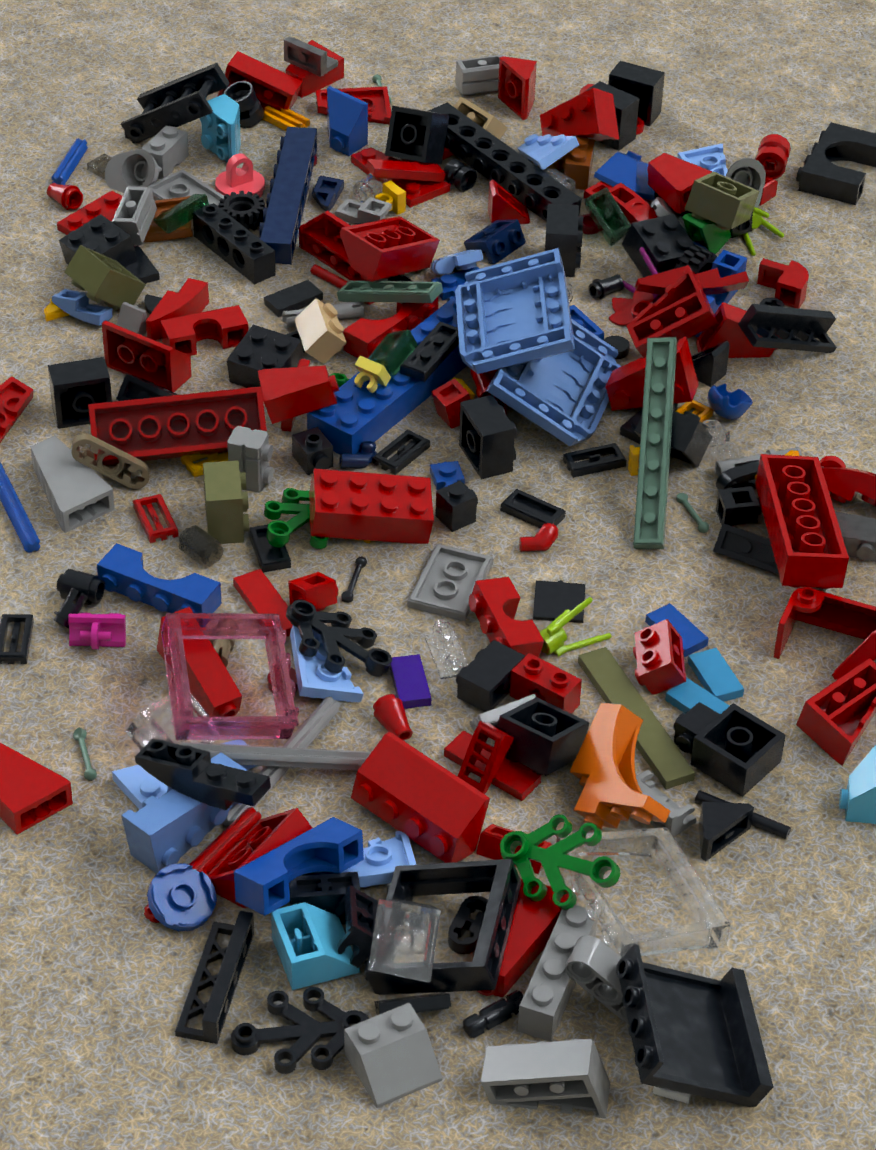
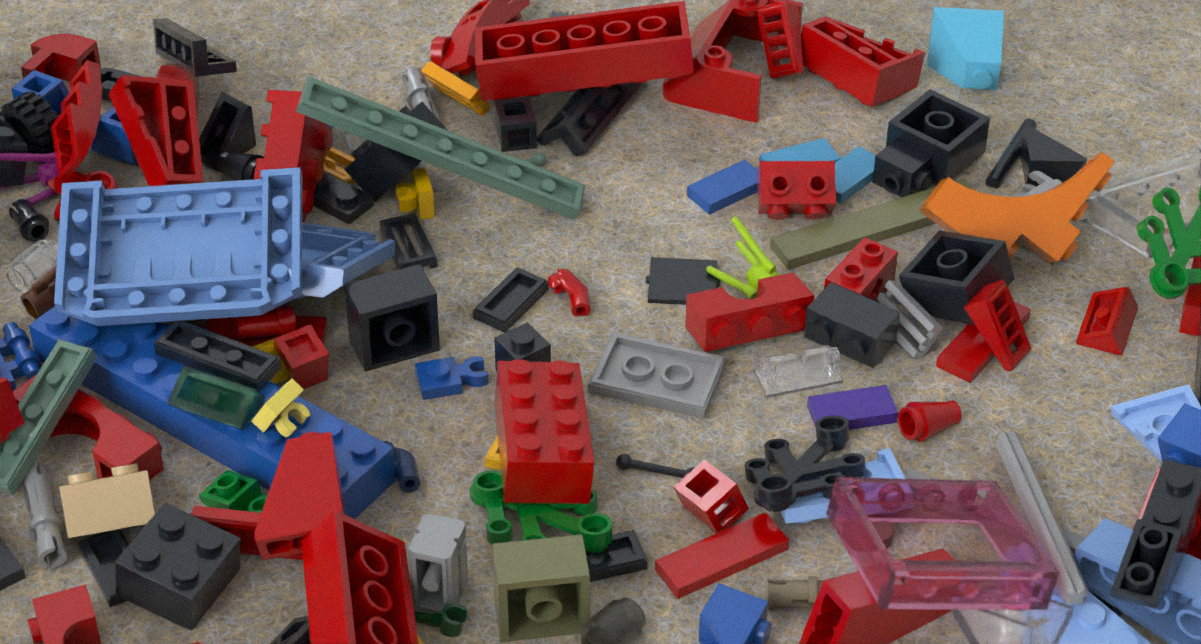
camera: 90 degrees left, 0 degrees up
(312, 450) = (395, 506): black brick -> none
(404, 454) = (381, 427): black tile -> none
(421, 799) = (1089, 375): red slope -> none
(738, 477) = (459, 117): black beam -> none

